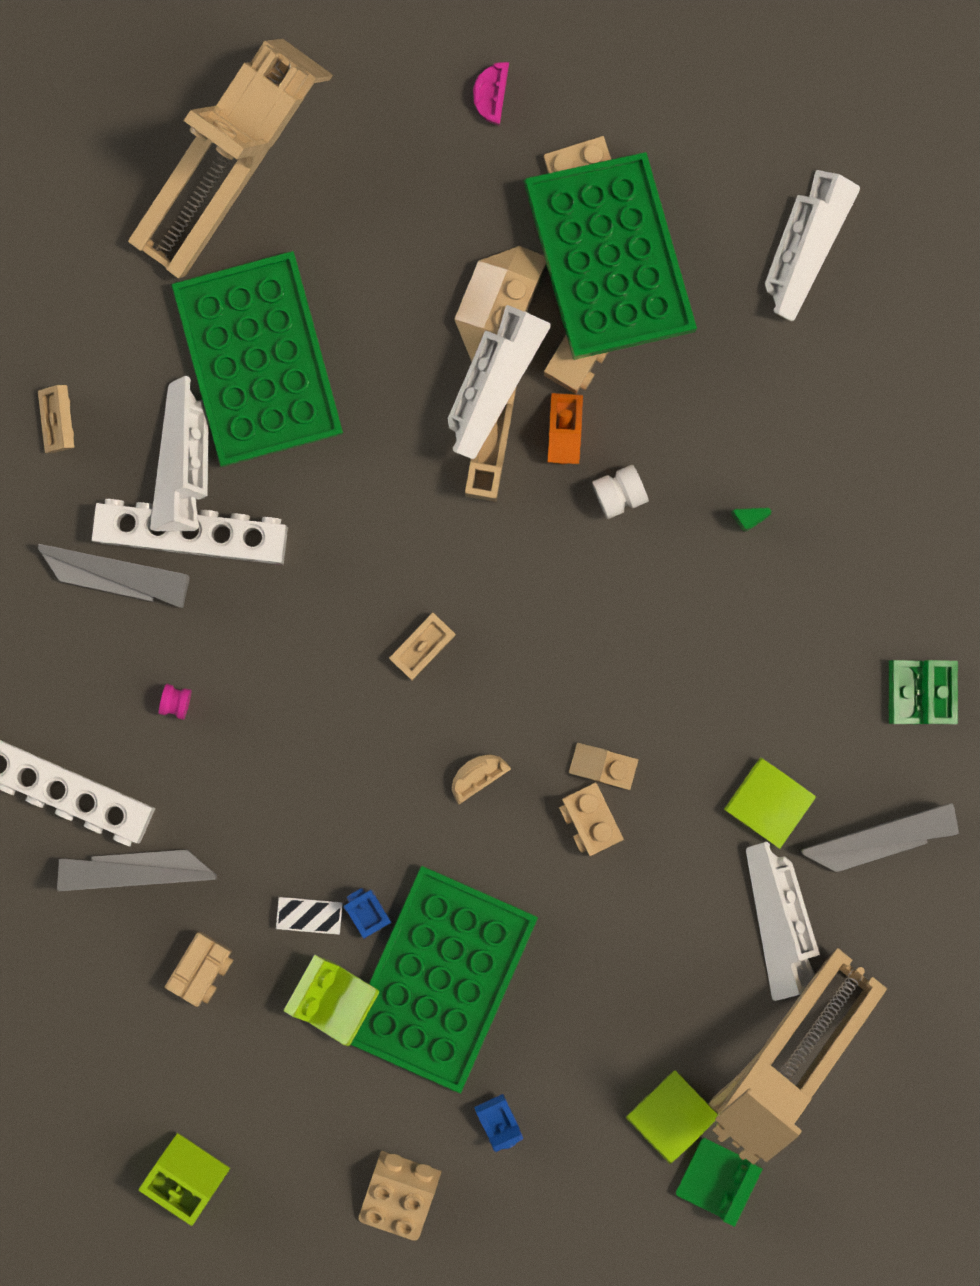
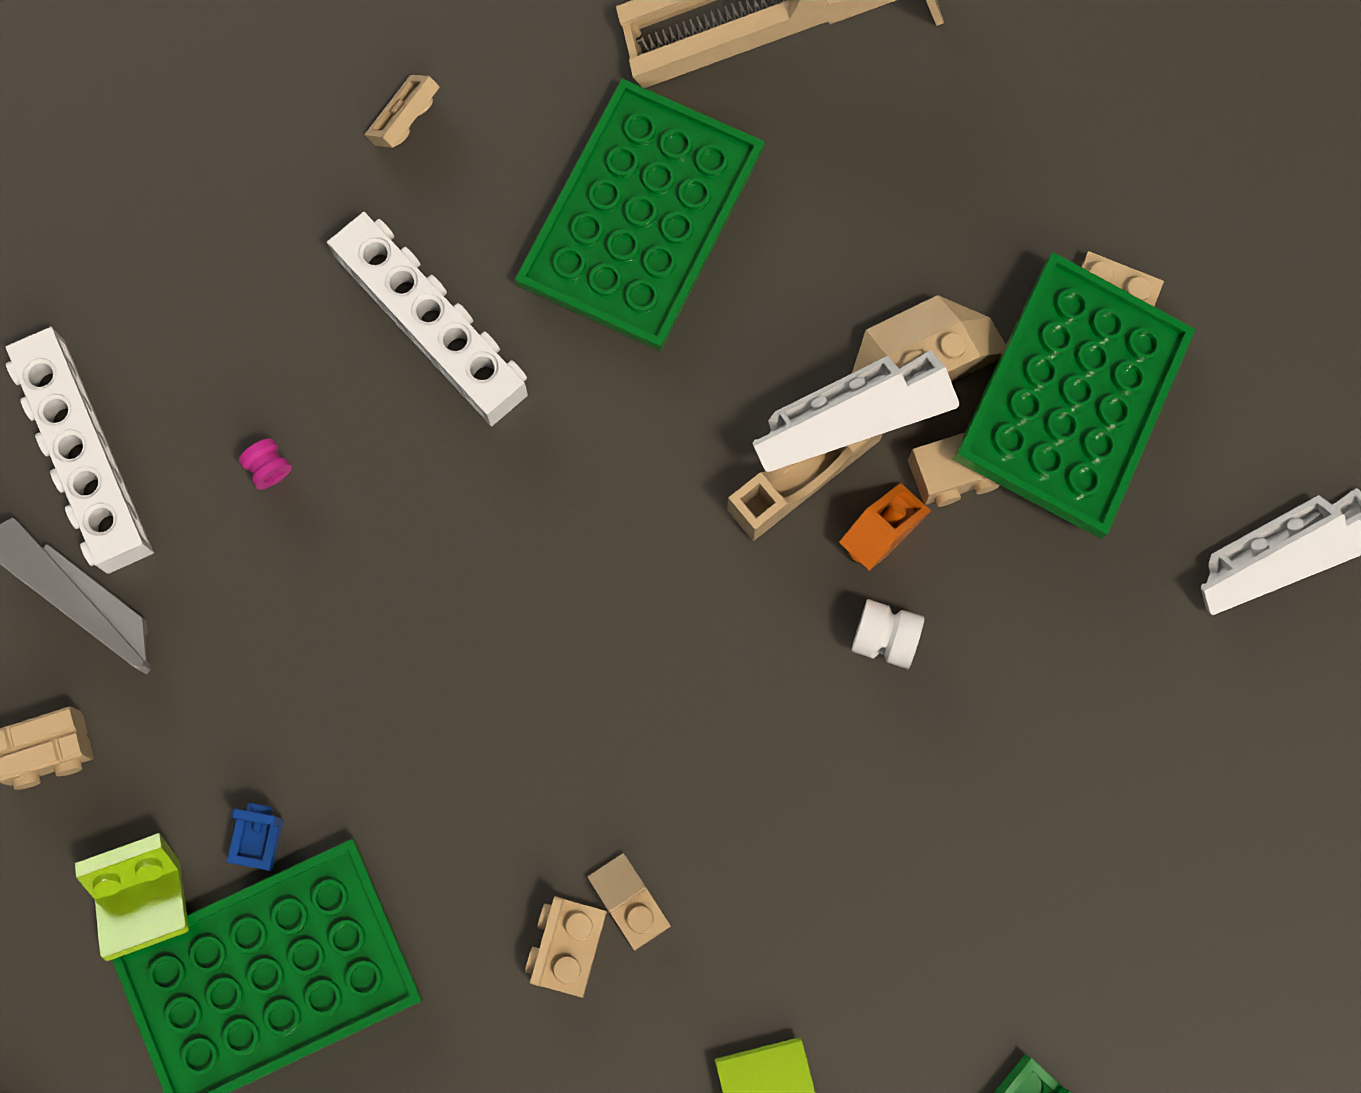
camera: 35 degrees right, 10 degrees down
(116, 576) = (323, 300): light grey wedge -> none
(182, 461) = (480, 243): white wedge -> none
(309, 915) = (198, 791): tile -> none
(422, 646) = (553, 618): tan plate -> none
(477, 775) = (492, 796): tan plate -> none
(490, 92) = (1085, 153): dark pink plate -> none
(750, 517) = (1002, 775): green slope -> none

